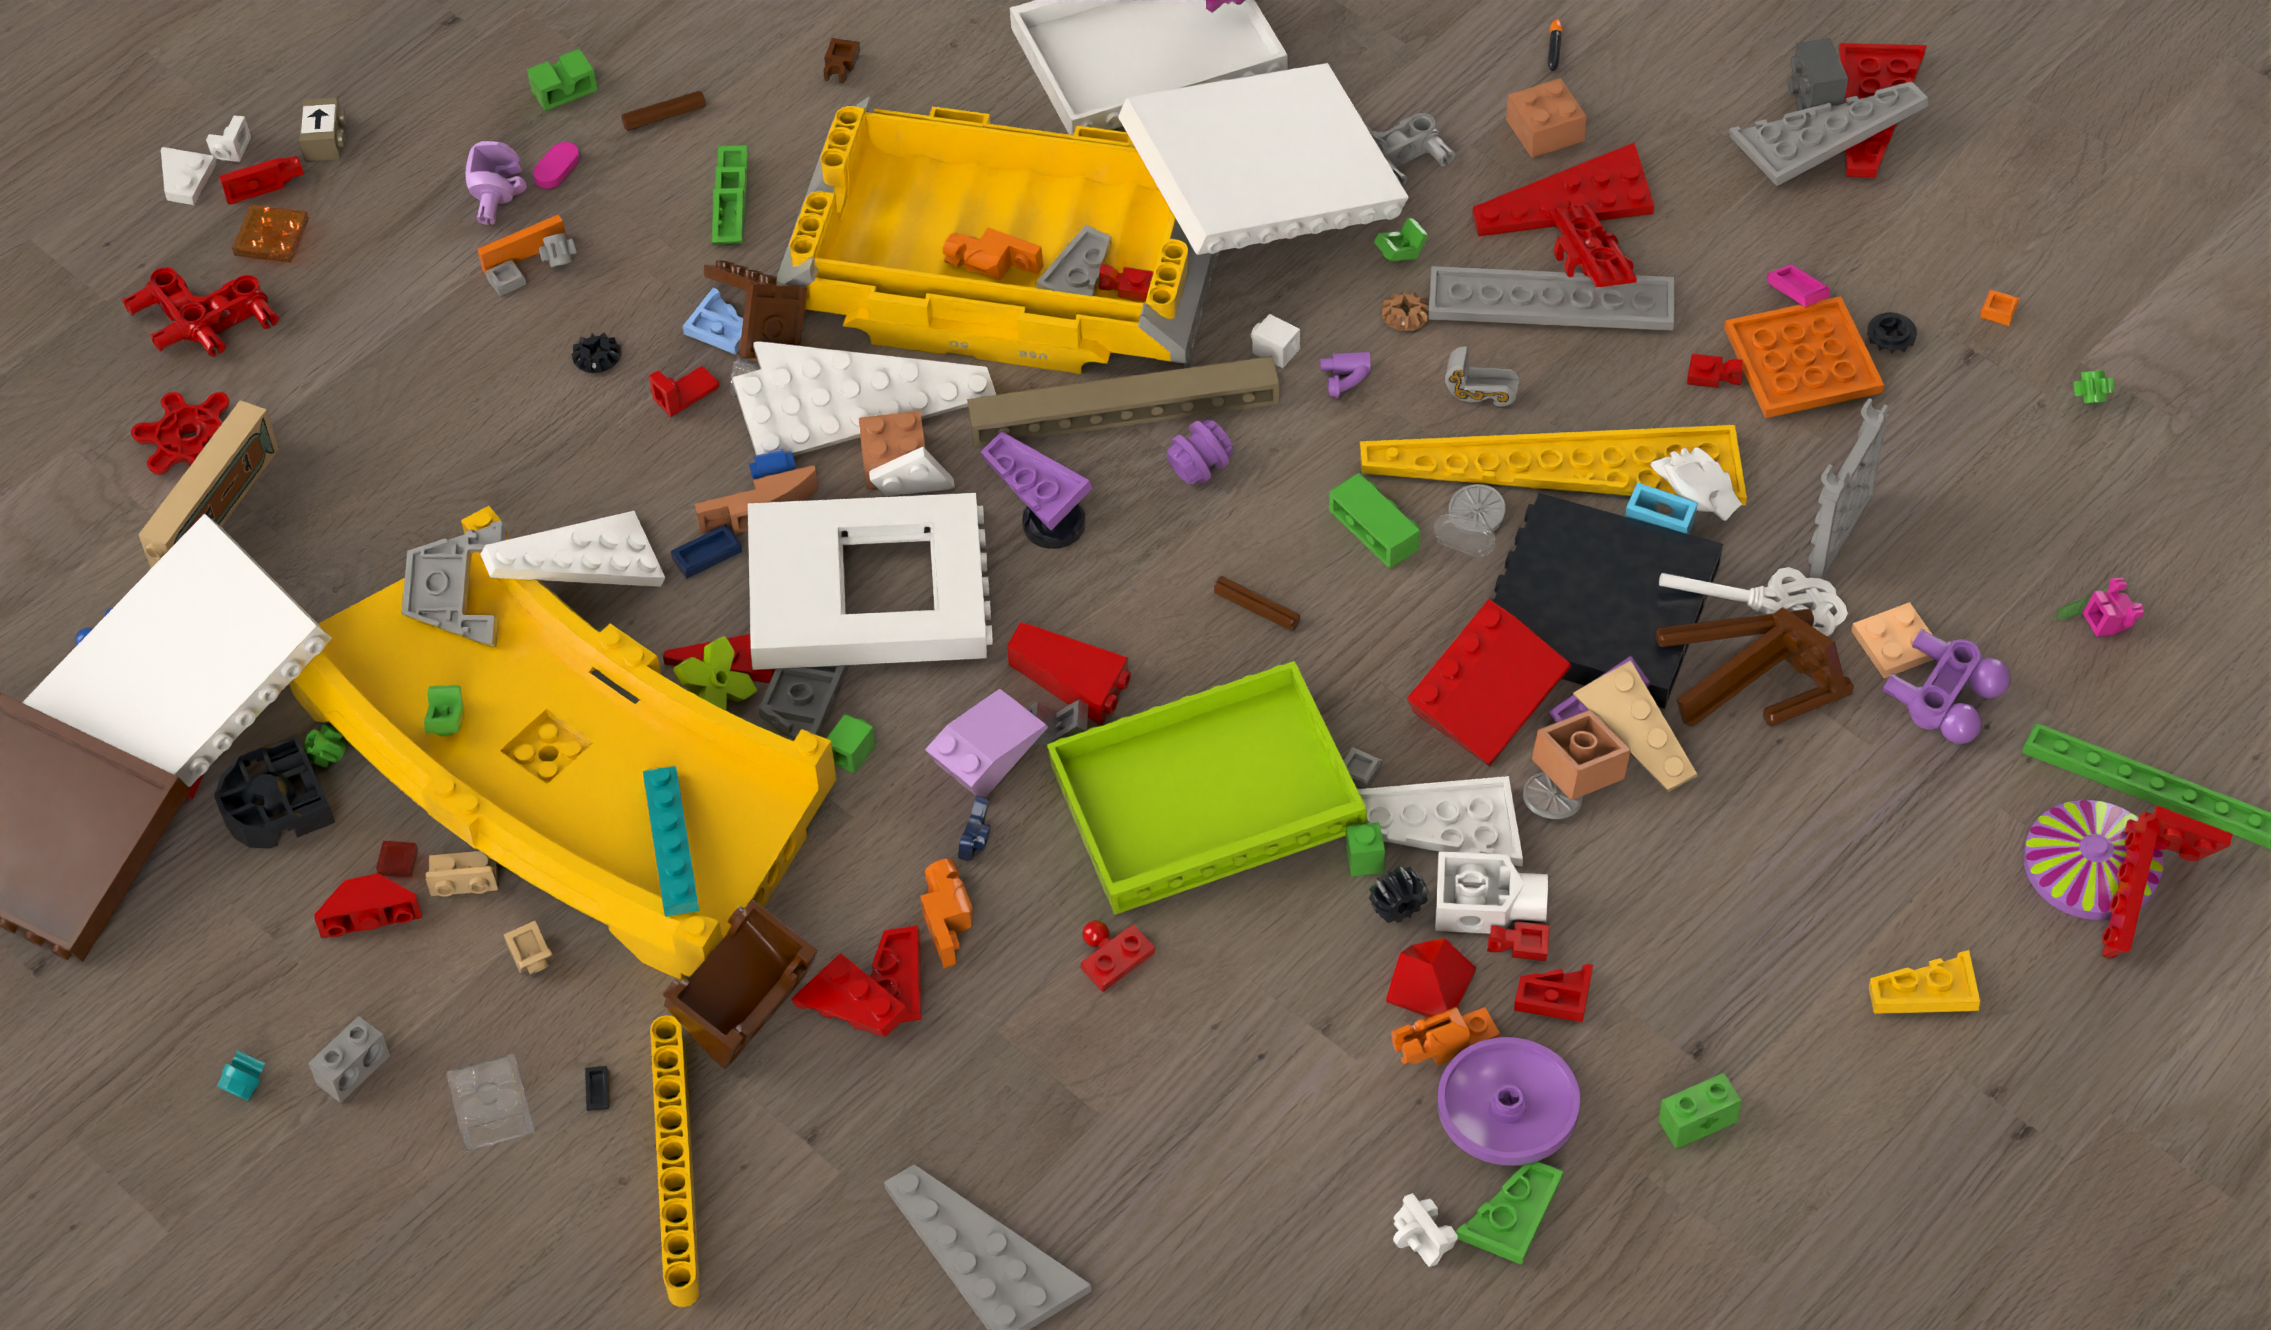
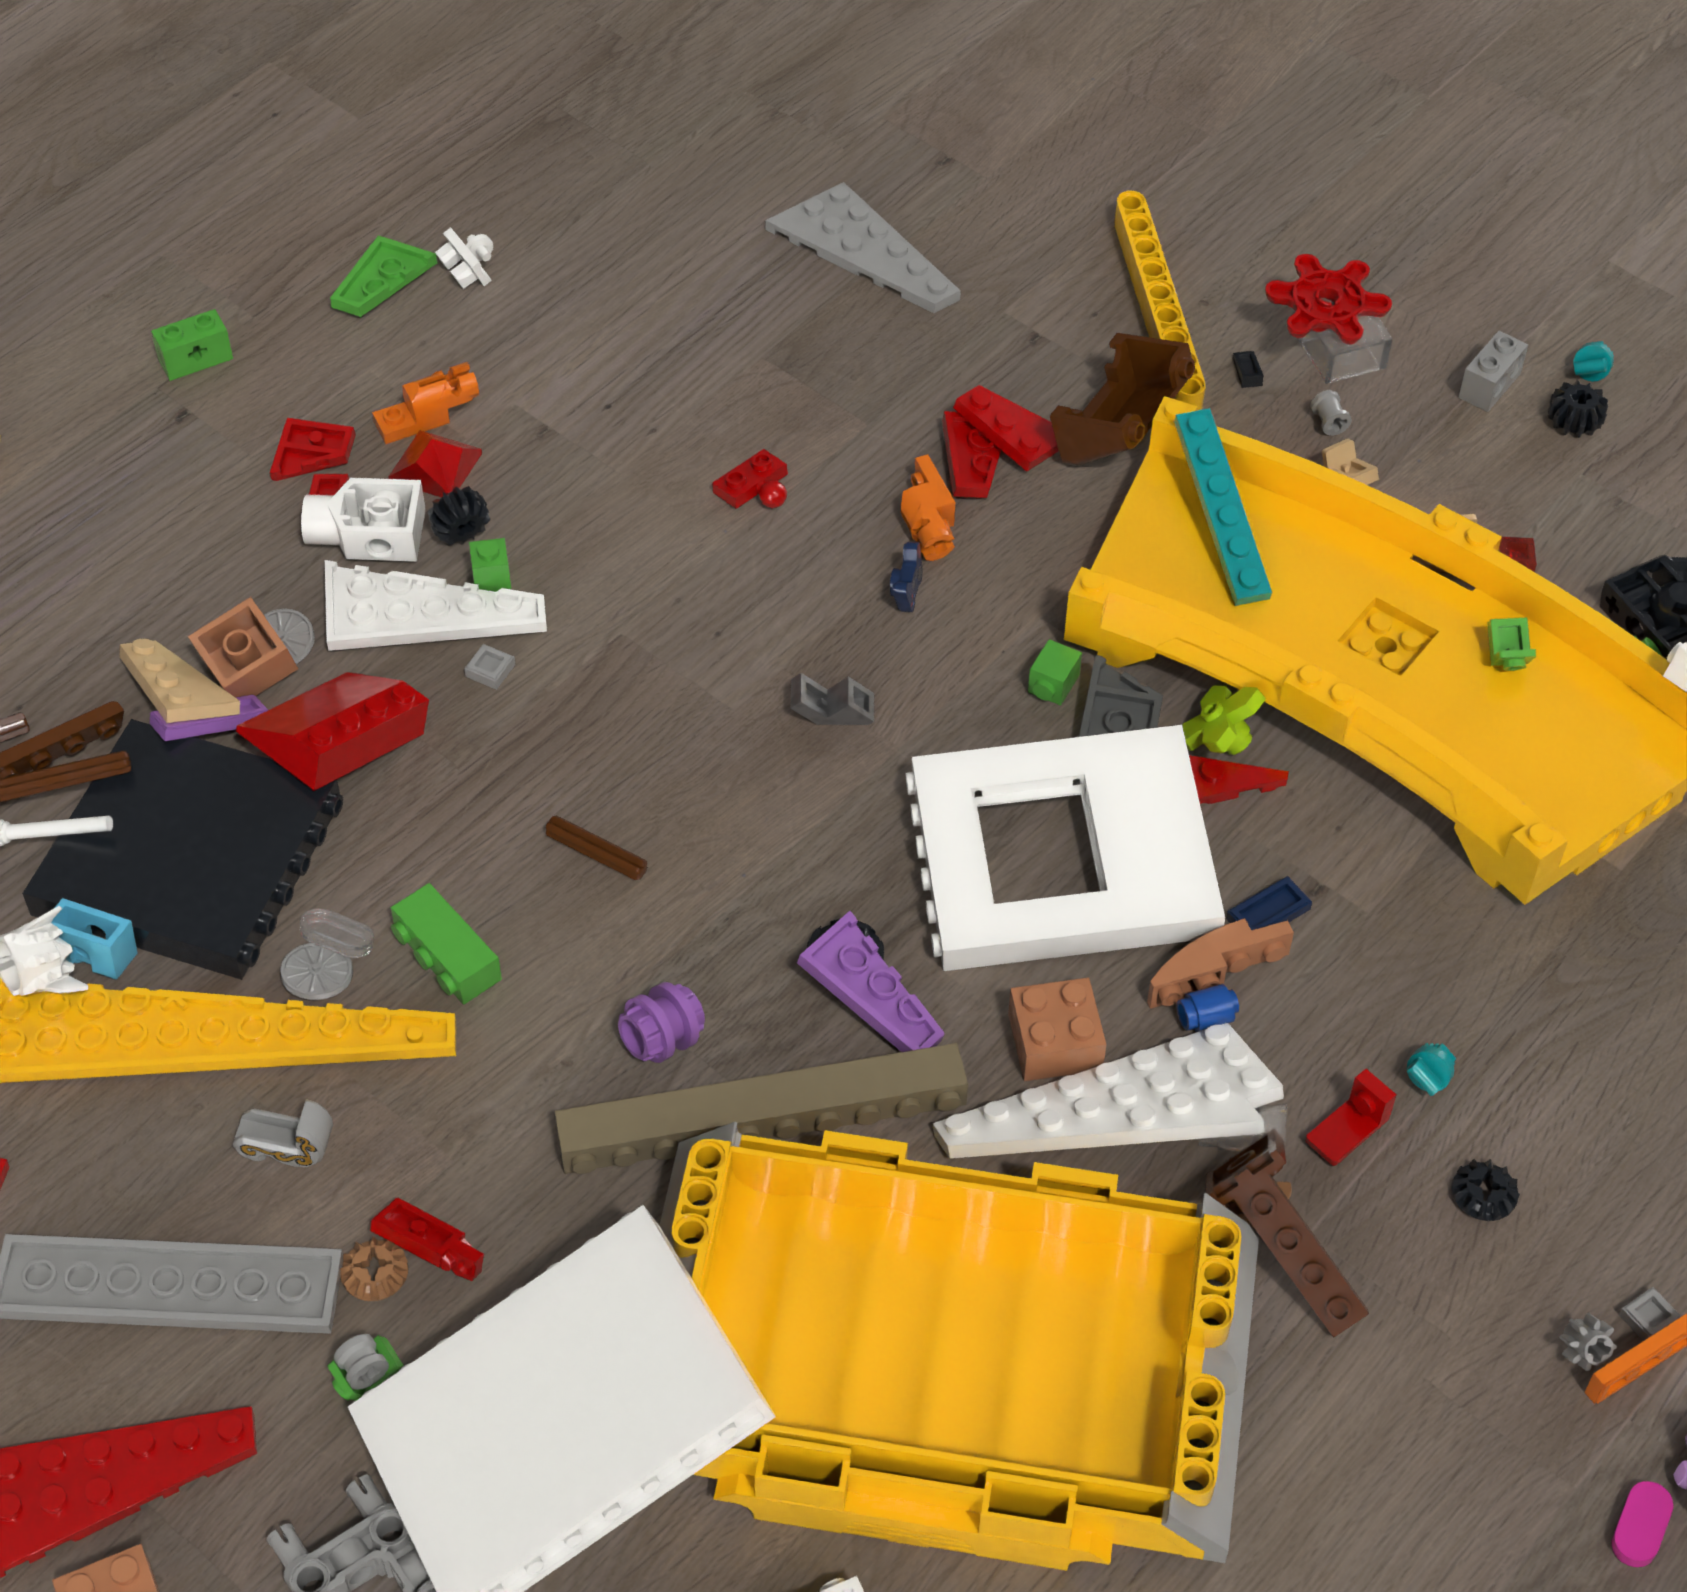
camera: 175 degrees right, 0 degrees up
(279, 1017) = (1578, 408): none -> black gear
(365, 905) = (1527, 508): red slope -> none
(439, 584) = (1561, 780): light grey wing -> none
(498, 1072) = (1338, 286): none -> red plate
(528, 1018) = (1333, 417): none -> light grey bush
(587, 552) = (1406, 847): white wing -> none
(612, 426) = (1431, 1067): none -> teal piece
(715, 323) = (1335, 1224): light blue wing -> none
(730, 195) = (1362, 1460): bright green slope -> none
(911, 474) = (1018, 975): white wing -> none
(986, 742) = (903, 657): lavender slope -> none
(992, 253) = (953, 1290): orange plate -> none
(1070, 668) = (814, 756): red slope -> none
(1078, 265) = (831, 1270): light grey wing -> none
(1130, 283) = (754, 1253): red plate -> none
(1205, 787) = (656, 620): lime panel -> none
(1275, 339) = (557, 1204): white brick -> none
(1342, 364) = (463, 1176): medium lavender plant -> none
(1369, 322) = (428, 1238): none -> red hinge
(1403, 229) = (361, 1361): none -> light grey wheel
(1508, 1101) = (372, 343): medium lavender dish -> none
(1591, 247) = (105, 1329): red piece -> none

